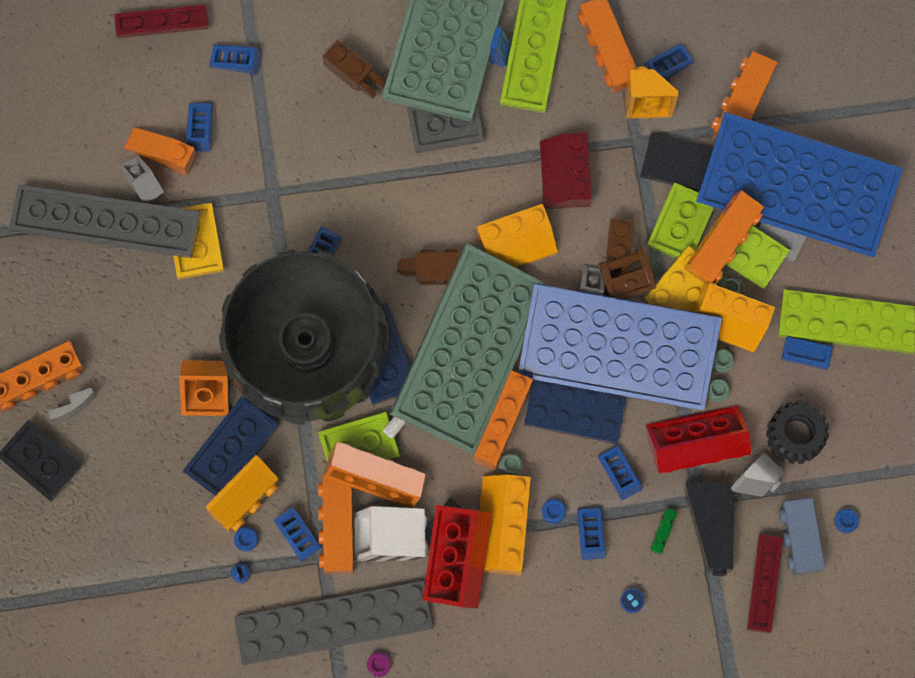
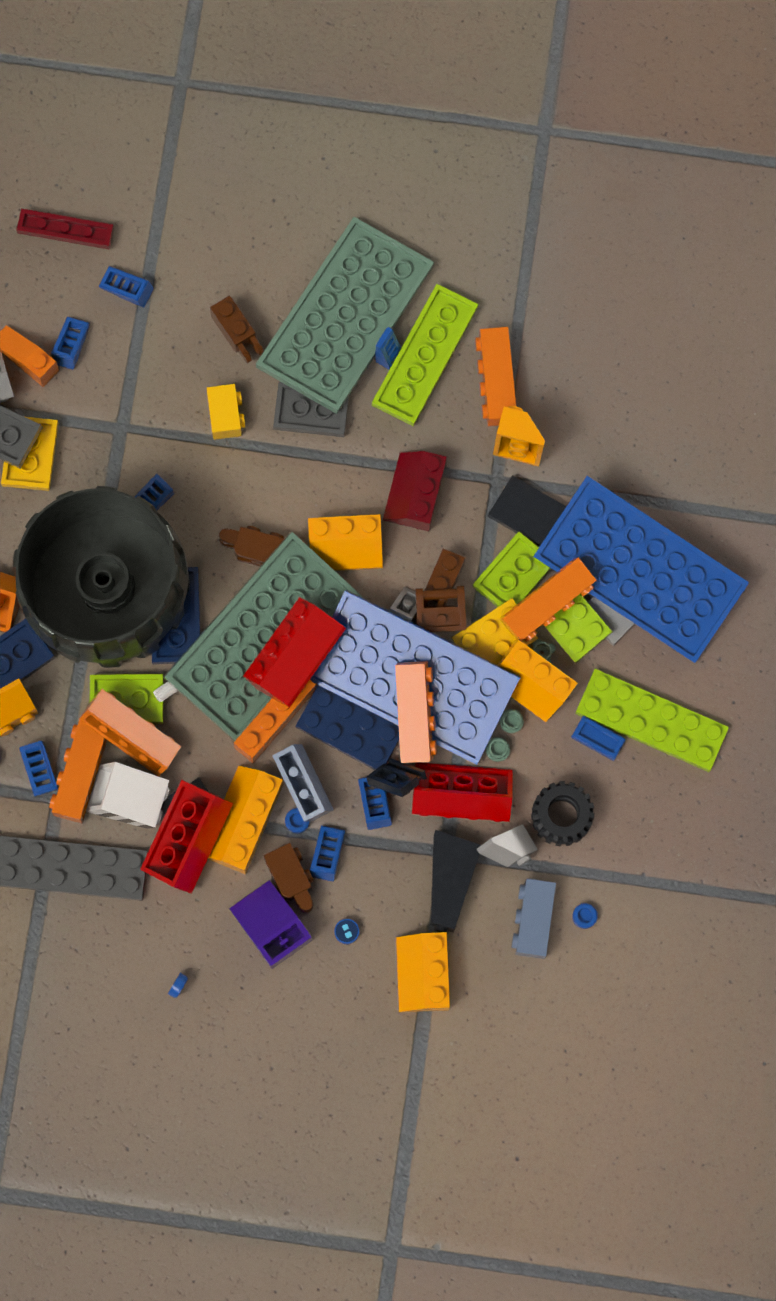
camera: 15 degrees right, 0 degrees up
(365, 149) = (224, 413): none -> yellow brick
(378, 664) = (78, 920): magenta tile -> none
(505, 355) = (294, 652): none -> red slope
(511, 464) = (267, 763): sand green plate -> none
(549, 474) = (303, 782): none -> sand blue brick
(560, 614) = (271, 924): none -> dark purple slope
(564, 564) = (290, 877): none -> reddish brown hinge
(632, 377) = (415, 712): none -> brick
(635, 444) = (396, 777): none -> black plate
(654, 63) = (536, 409): blue slope -> none
(663, 531) = (399, 872): green axle -> none
(715, 617) = (423, 972): none -> light orange slope
(747, 88) = (622, 459): orange brick -> none
(764, 584) = (482, 953): dark red plate -> none

